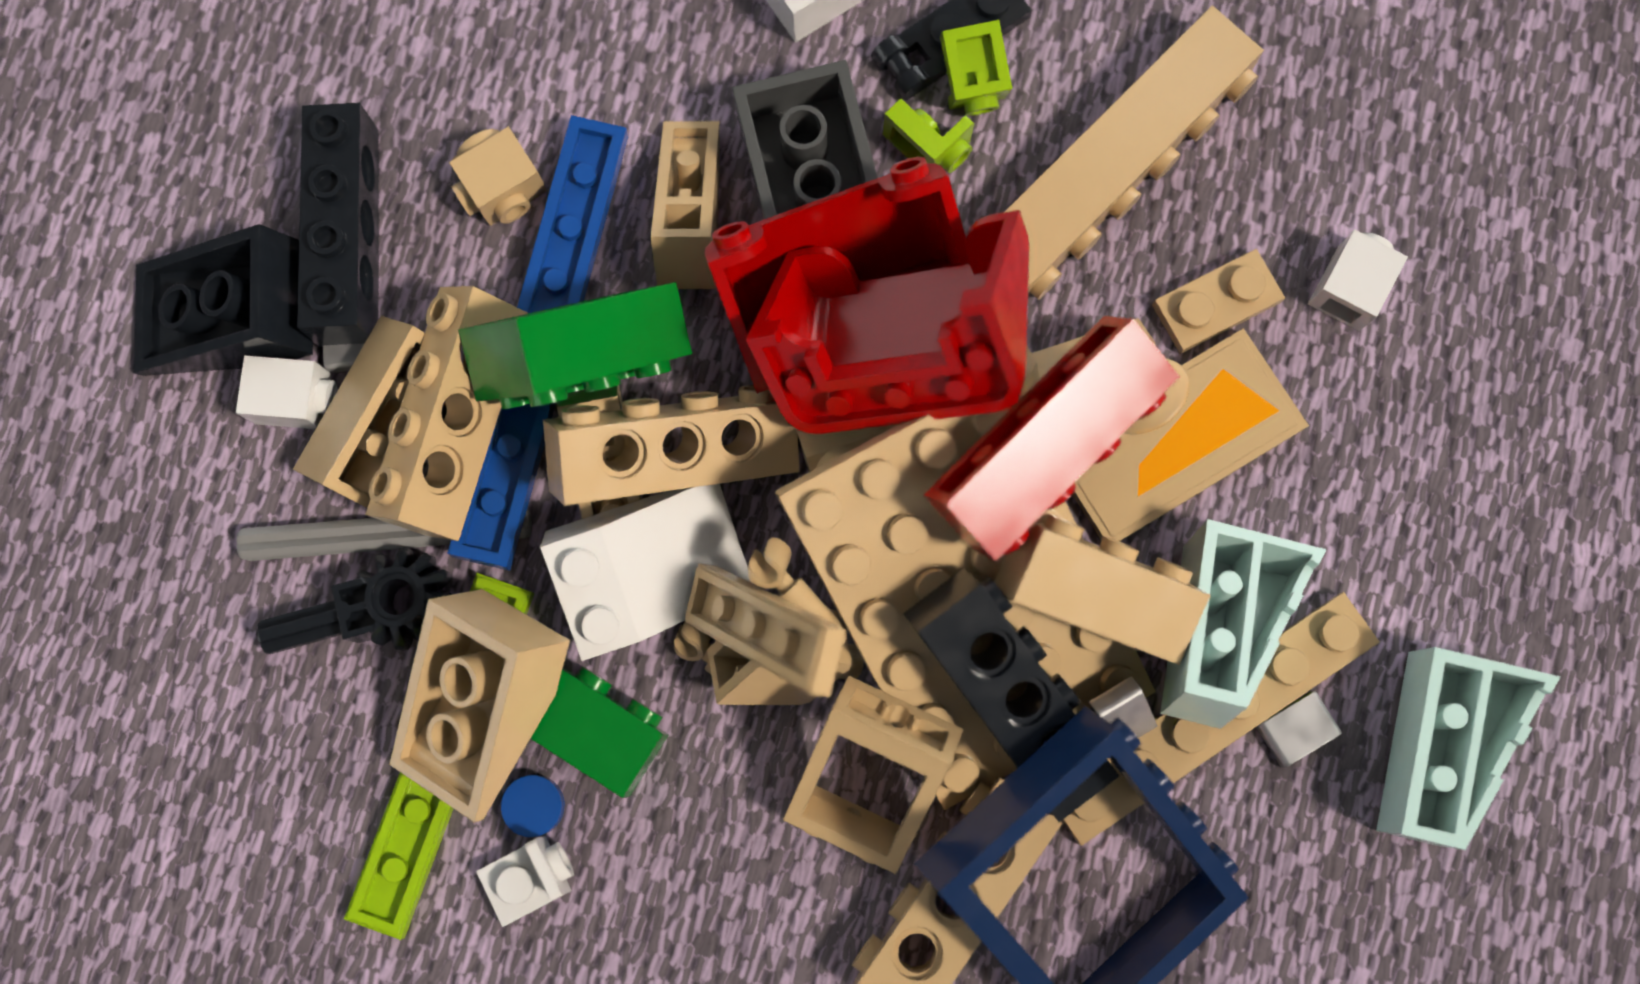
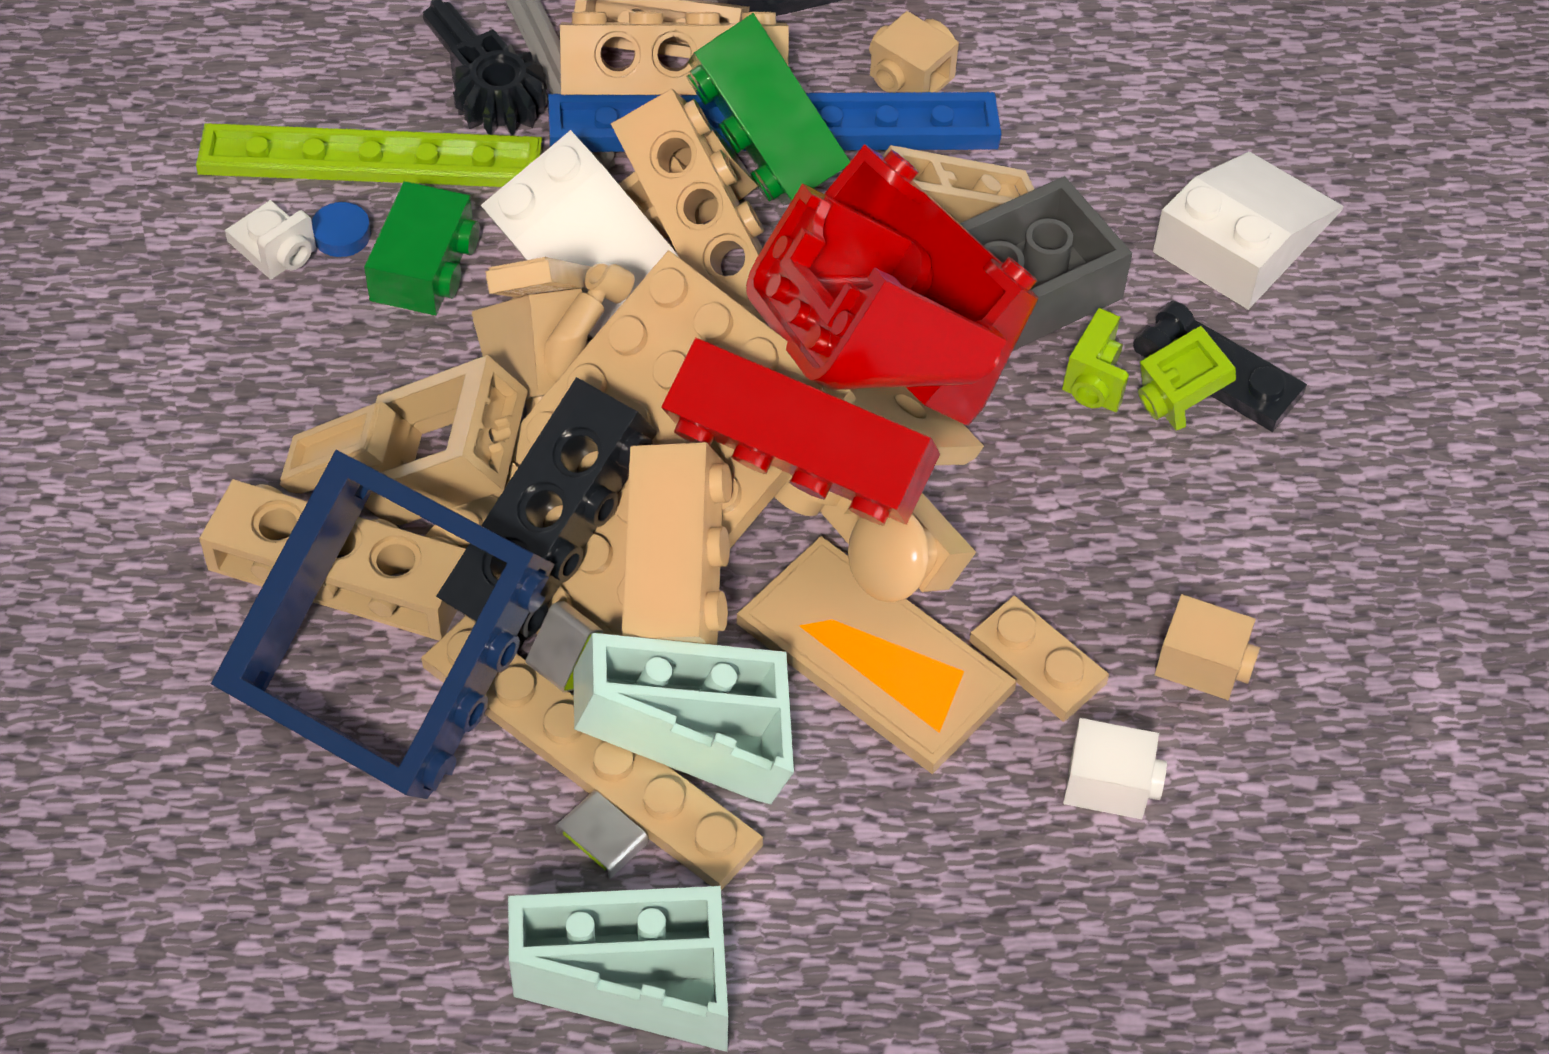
camera: 65 degrees right, 25 degrees down
(474, 697) = (431, 138): tan slope -> none
(836, 873) = (357, 434): none -> tan tile
(1132, 142) = (1153, 523): tan brick -> none
(1258, 157) = (1207, 648): none -> tan brick

